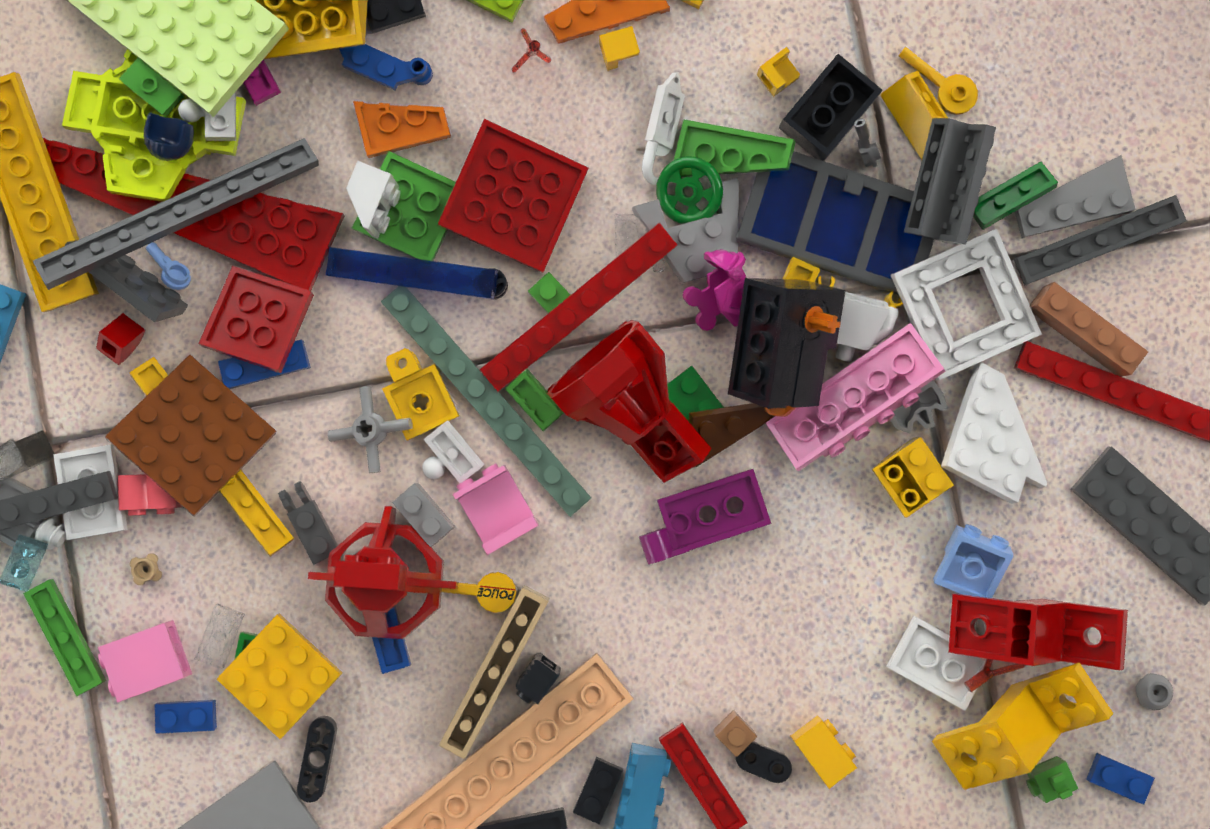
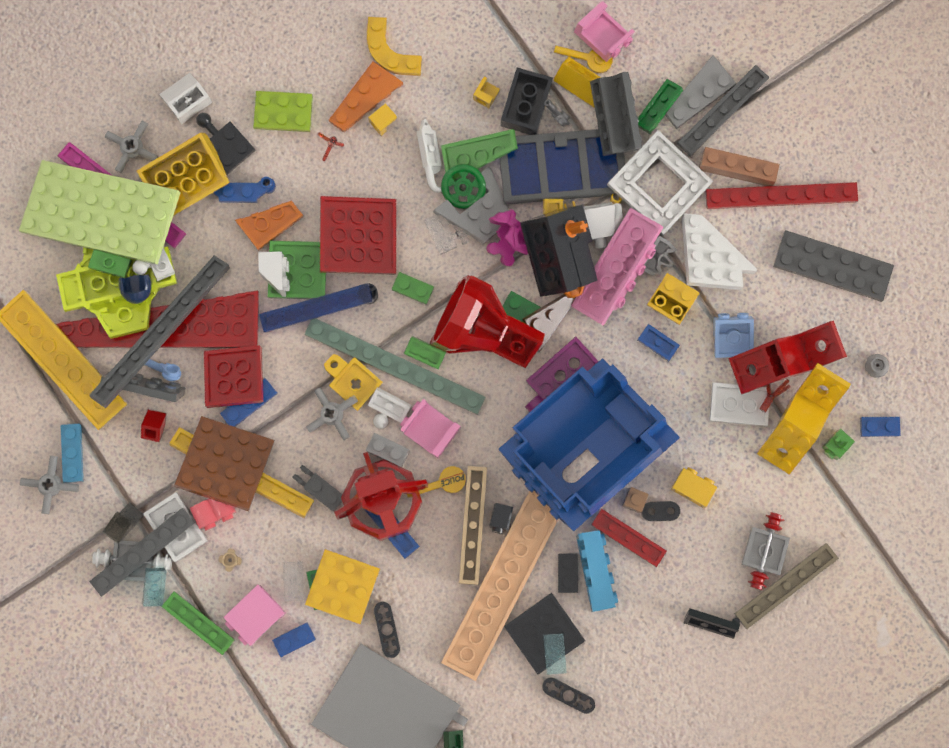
camera: 25 degrees left, 5 degrees down
(578, 307) = (427, 284): red plate -> none
(752, 616) = (591, 413): none -> blue panel
(864, 527) = (658, 342): none -> blue plate
(980, 57) = (603, 33): none -> bright pink panel

